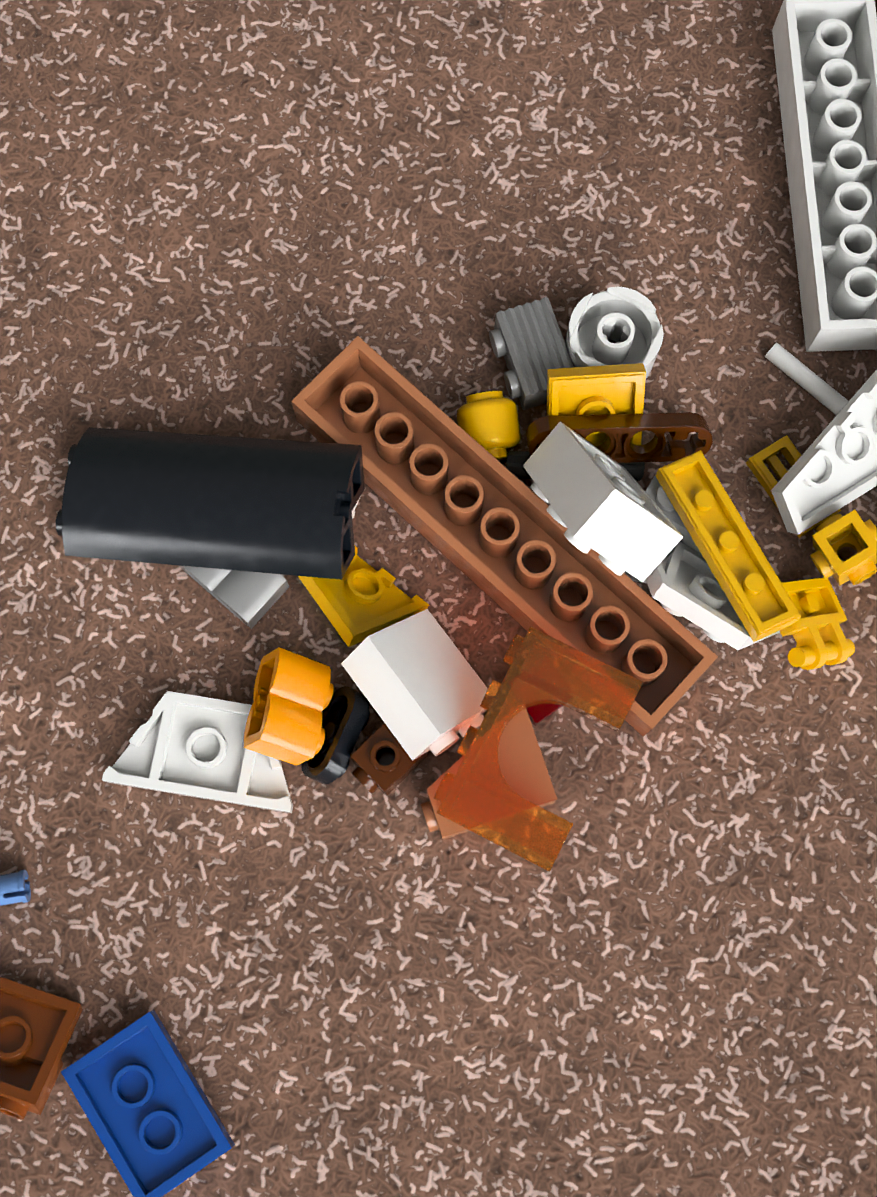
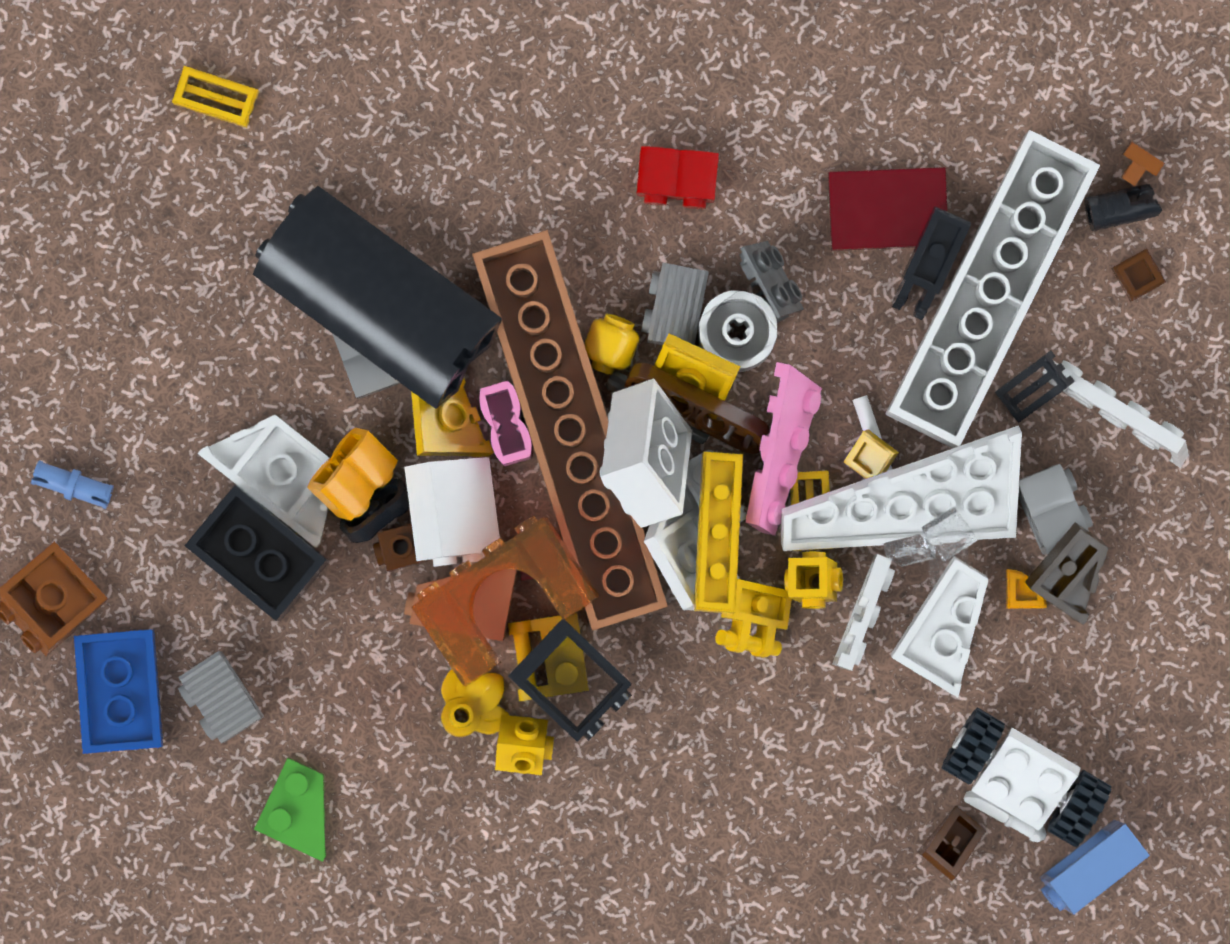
camera: 30 degrees right, 10 degrees up
(225, 854) = (257, 553): none -> black brick
(270, 1048) = (219, 697): none -> light grey brick
(430, 1132) = (296, 810): none -> bright green wing
(436, 569) = (508, 433): none -> bright pink brick
(459, 229) = (678, 176): none -> red brick
(564, 886) = (477, 700): none -> yellow plate
(601, 260) = (766, 264): none -> dark grey hinge
(625, 781) = (563, 666): none -> yellow plate
(646, 905) = (523, 745): none -> yellow brick
(685, 159) = (883, 206): none -> dark red tile
(718, 793) = (591, 723): none -> black window
(729, 428) = (781, 448): none -> bright pink wing
(762, 176) = (932, 259): none -> black hinge
(821, 396) = (870, 455): none -> yellow tile

